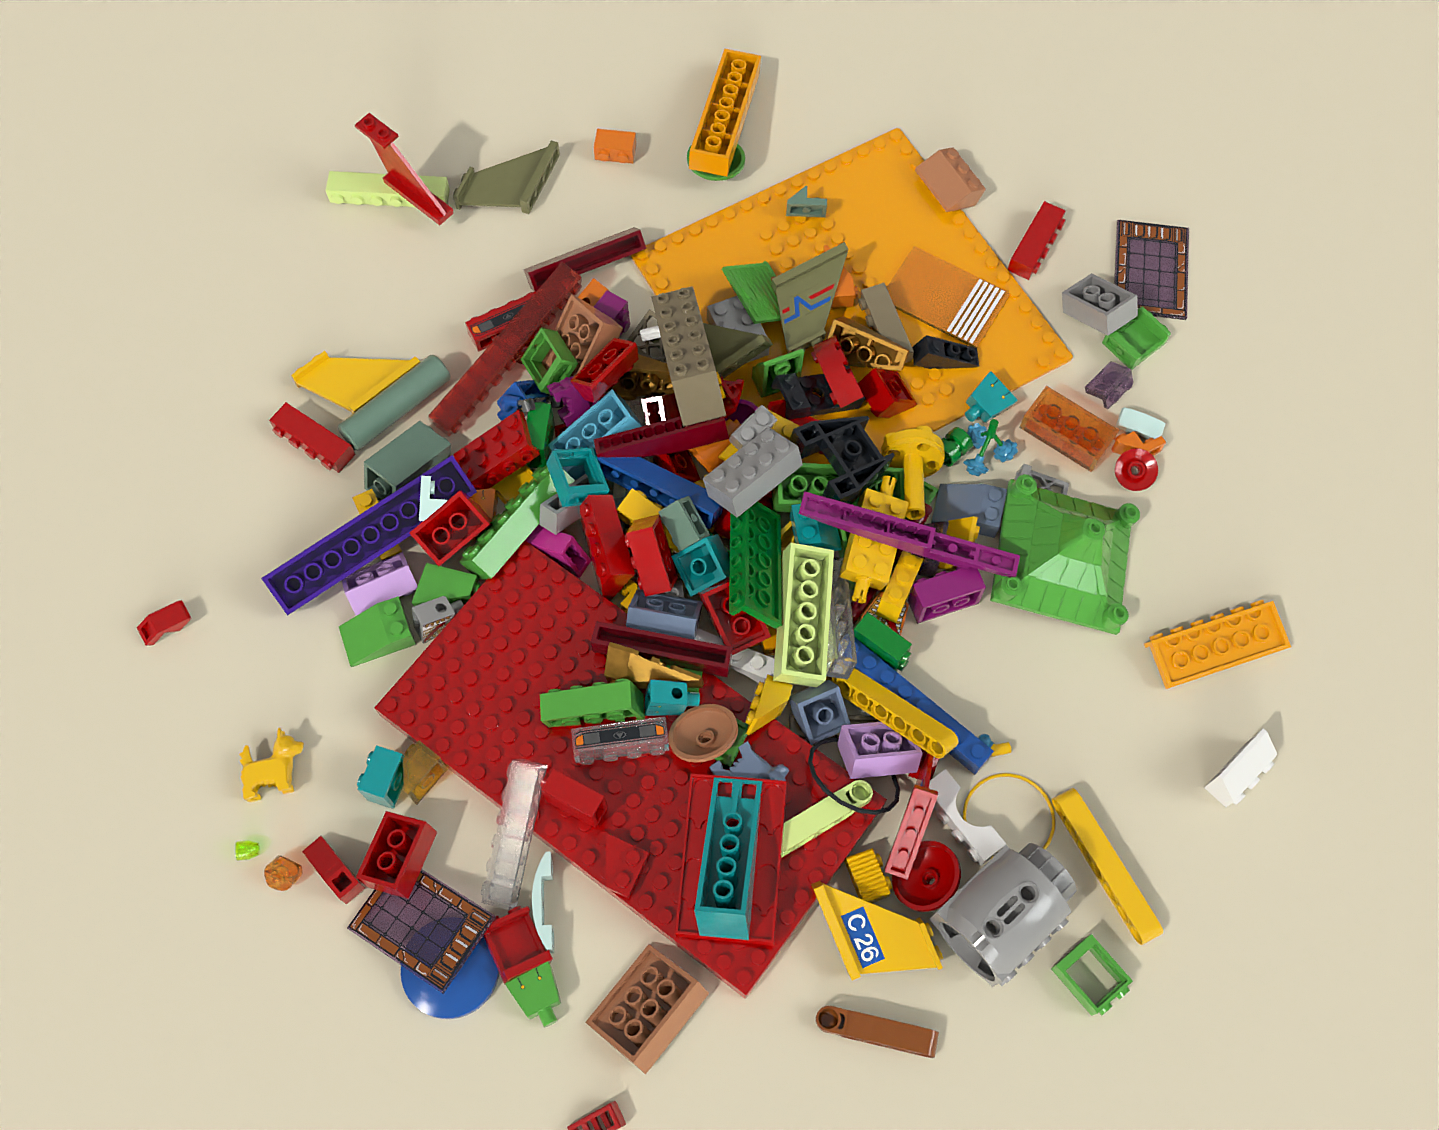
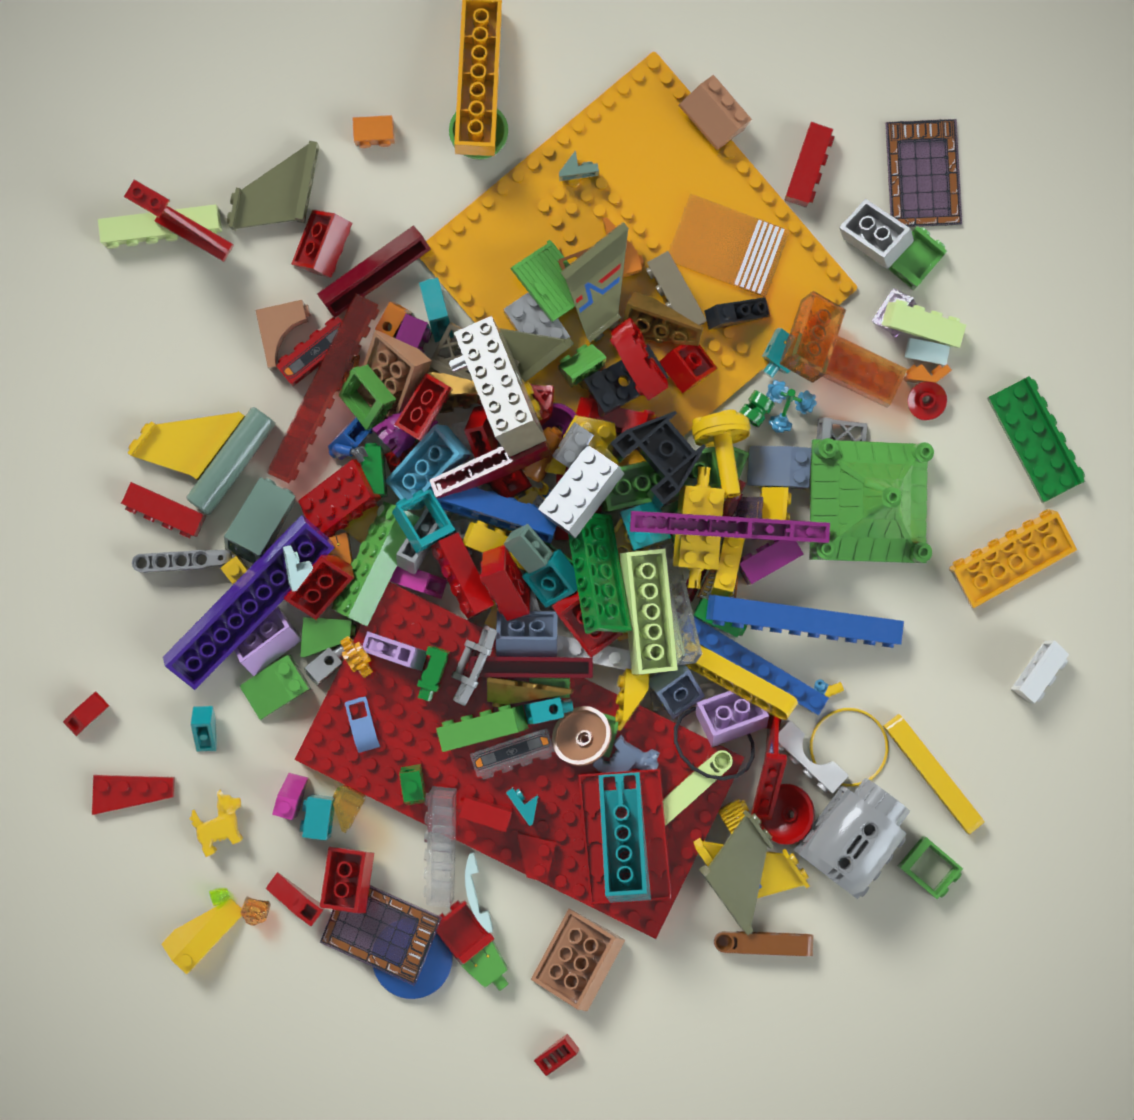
camera: 10 degrees left, 20 degrees up
(175, 713) = (121, 791): none -> red wing
(208, 894) = (197, 937): none -> yellow wedge
(286, 661) = (204, 728): none -> teal slope
(305, 487) = (213, 559): none -> light grey piece
(353, 750) = (290, 796): none -> dark pink slope
(458, 685) = (362, 728): none -> medium blue piece
(470, 601) = (356, 656): none -> light orange gear
(478, 289) = (277, 323): none -> nougat arch
(497, 753) = (412, 784): none -> green torso
(516, 608) = (394, 651): none -> lavender slope
(541, 229) = (322, 243): none -> red slope
(551, 634) = (433, 673): none -> green hips
(586, 648) = (469, 684): none -> light grey bar
(623, 805) = (526, 809): none -> teal slope
(638, 298) = (435, 308): none -> teal slope
(859, 927) = (738, 870): none -> olive piece
(977, 657) = (806, 620): none -> blue brick
(1022, 381) = (812, 337): none -> clear orange brick
(1140, 393) = (924, 324): none -> yellowish green brick
(1253, 530) = (1036, 439): none -> green bracket

